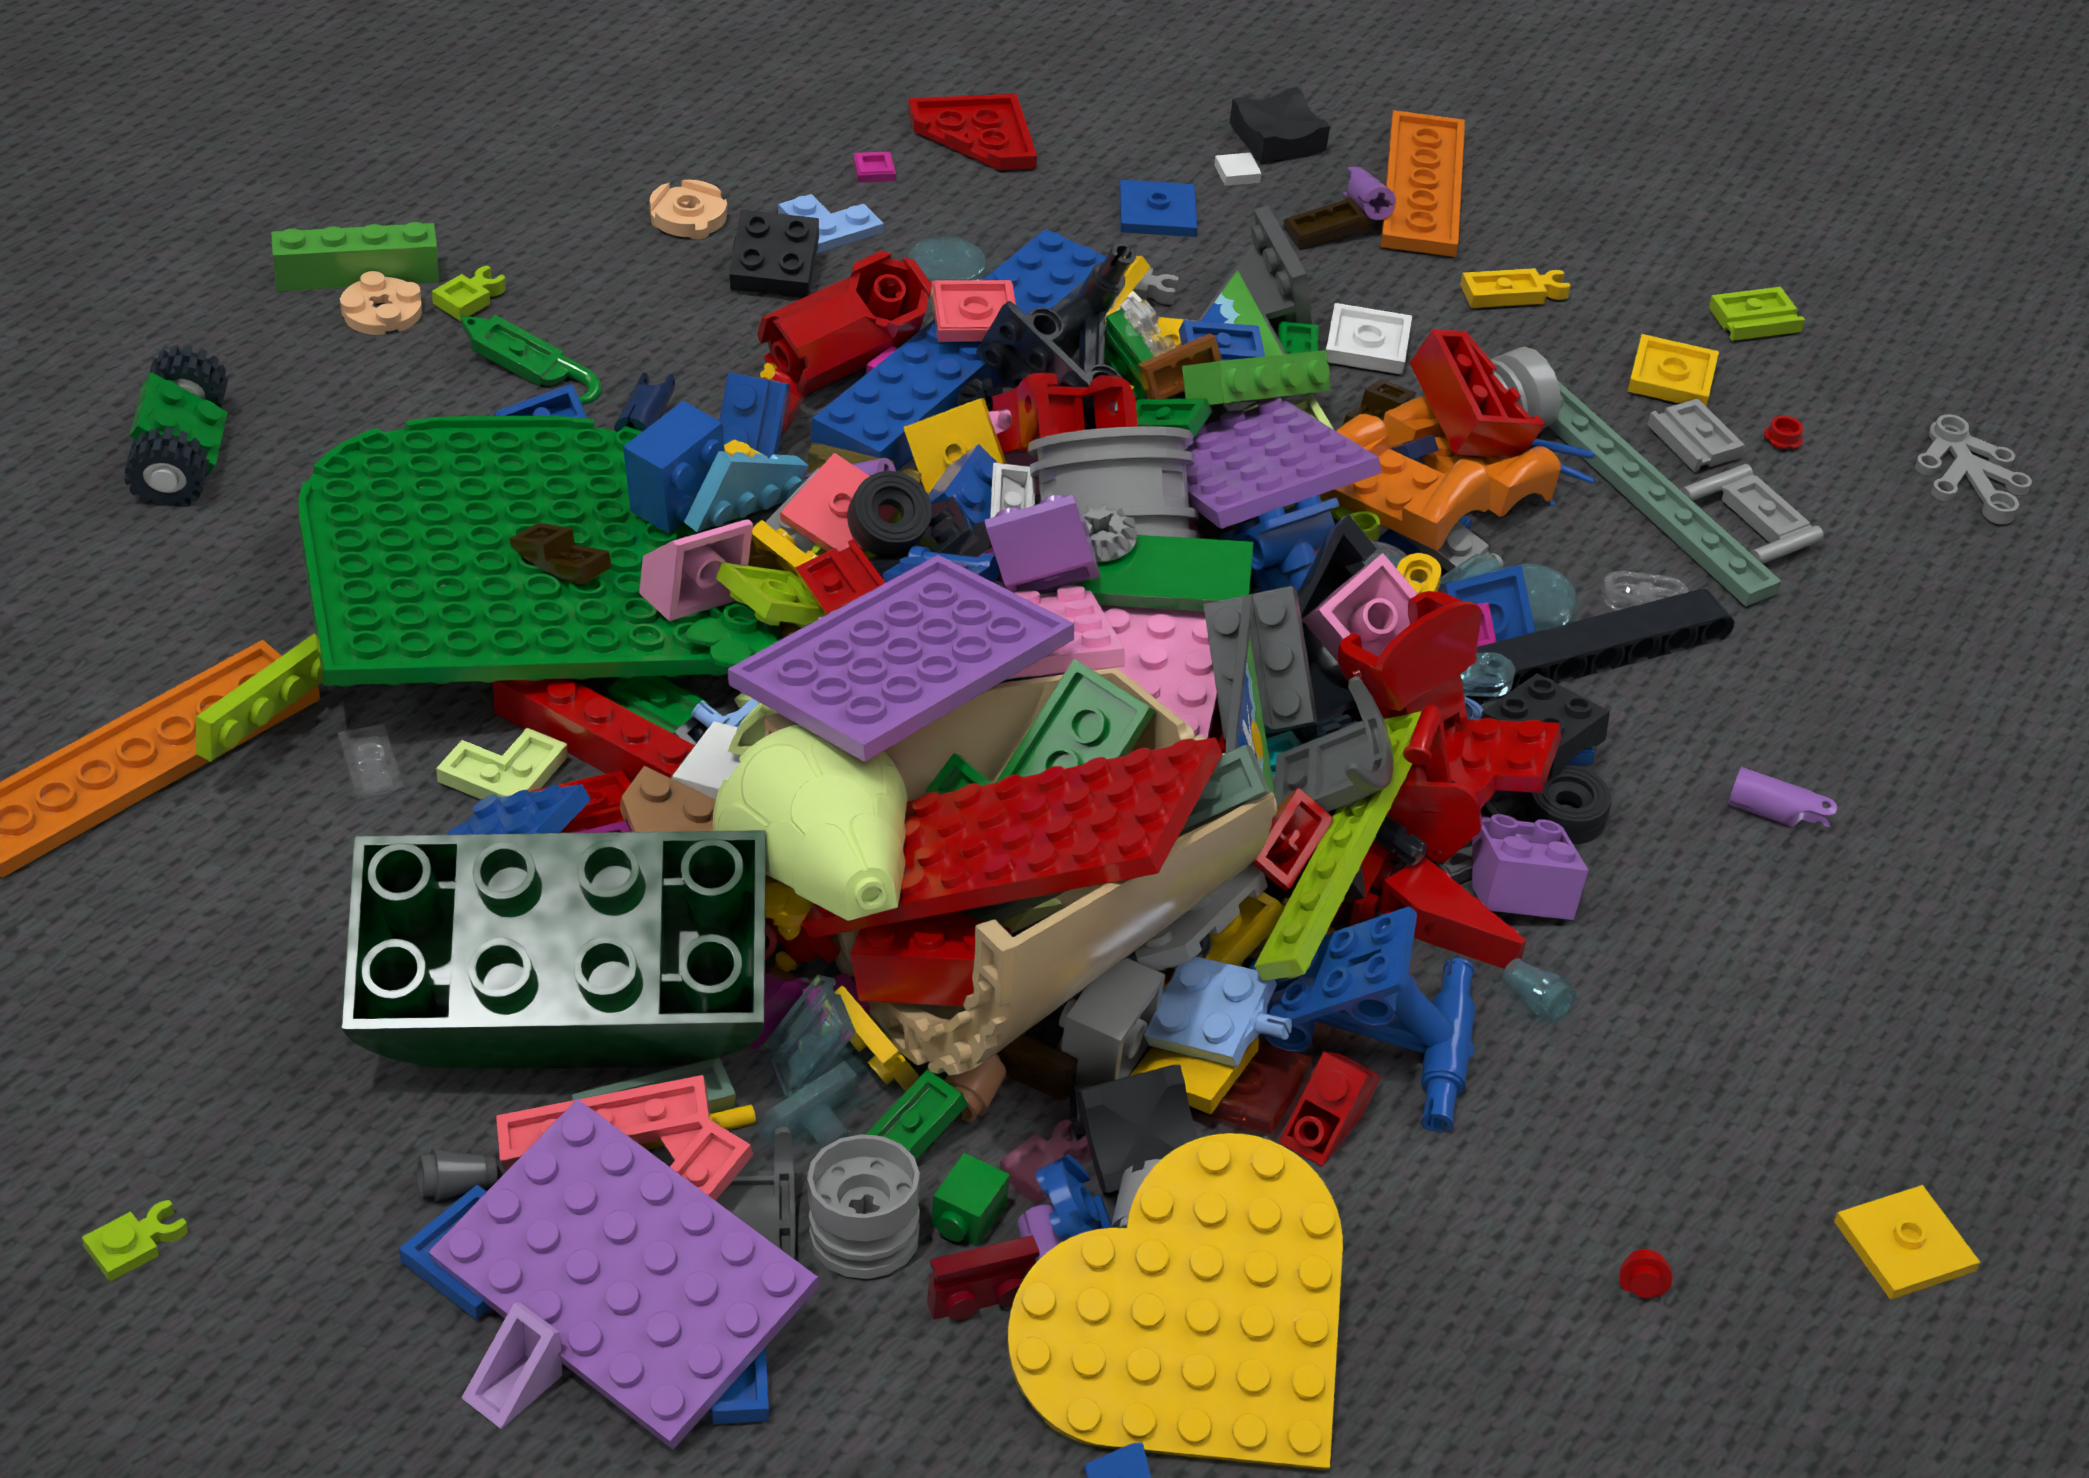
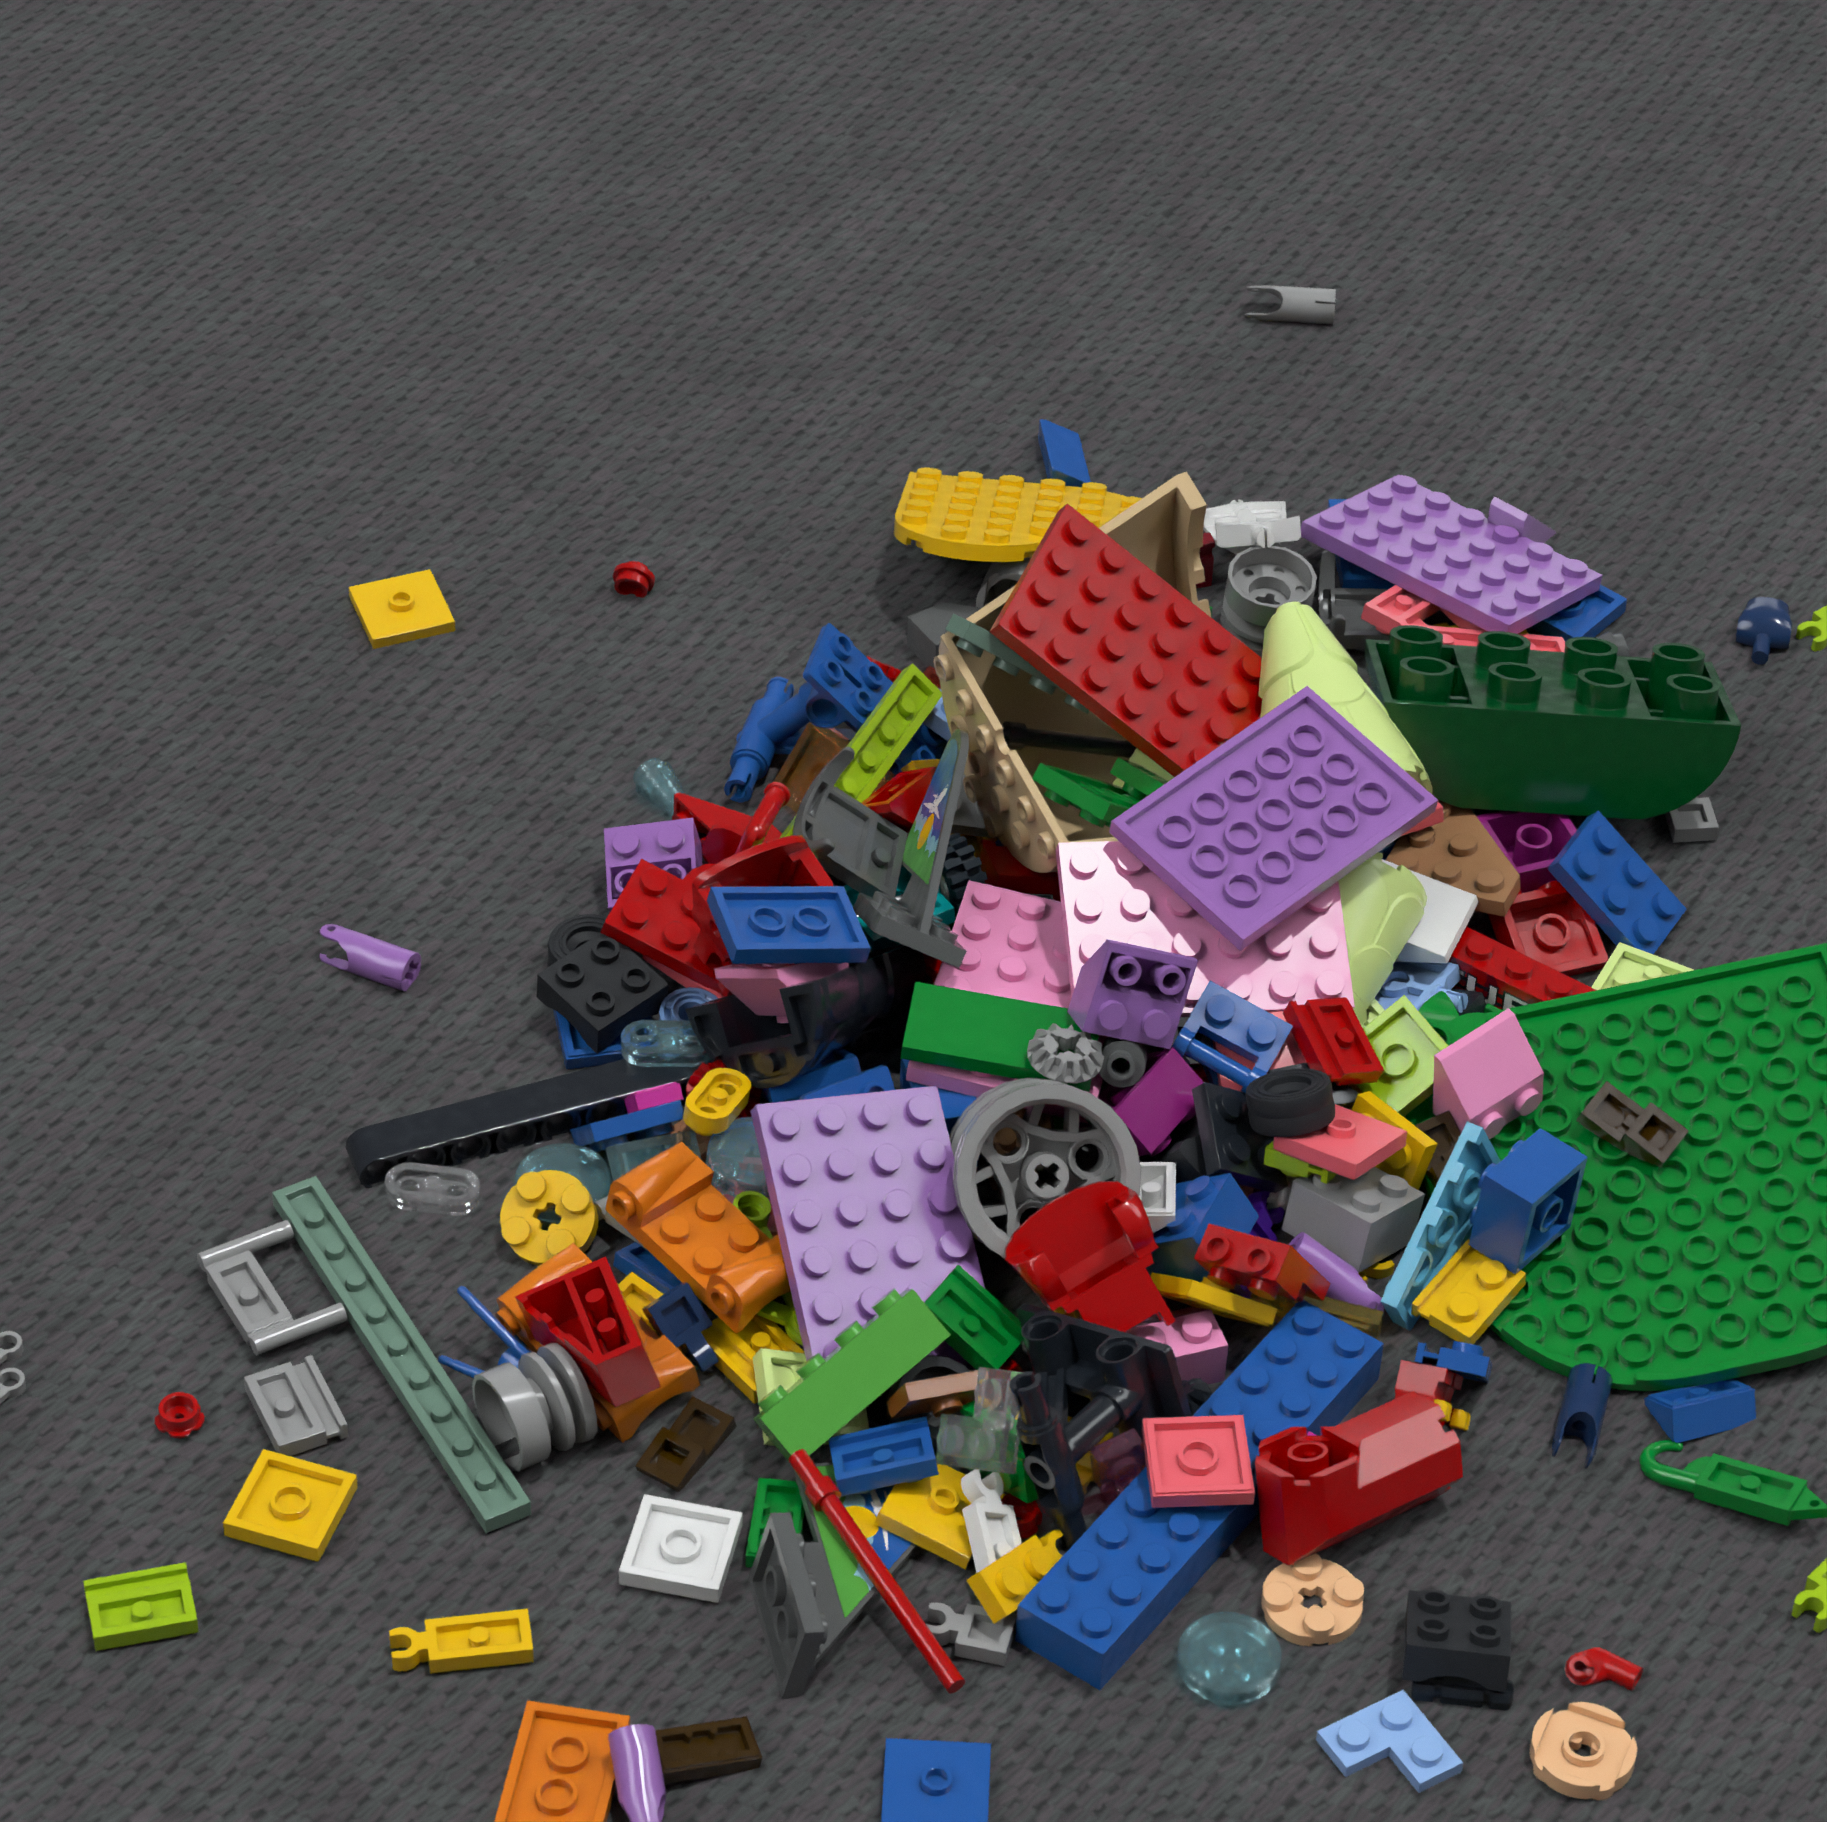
camera: 175 degrees left, 0 degrees up
(229, 1224) = (1764, 626): none -> dark blue piece
(663, 261) = (1601, 1665): none -> red arm
(888, 1261) = (1251, 524): none -> white plate
(918, 429) = (1259, 1264): none -> red plate
(1269, 329) = (825, 1497): none -> red bar
(1380, 579) = (788, 925): none -> blue plate
(1537, 552) = (537, 1193): none -> yellow plate

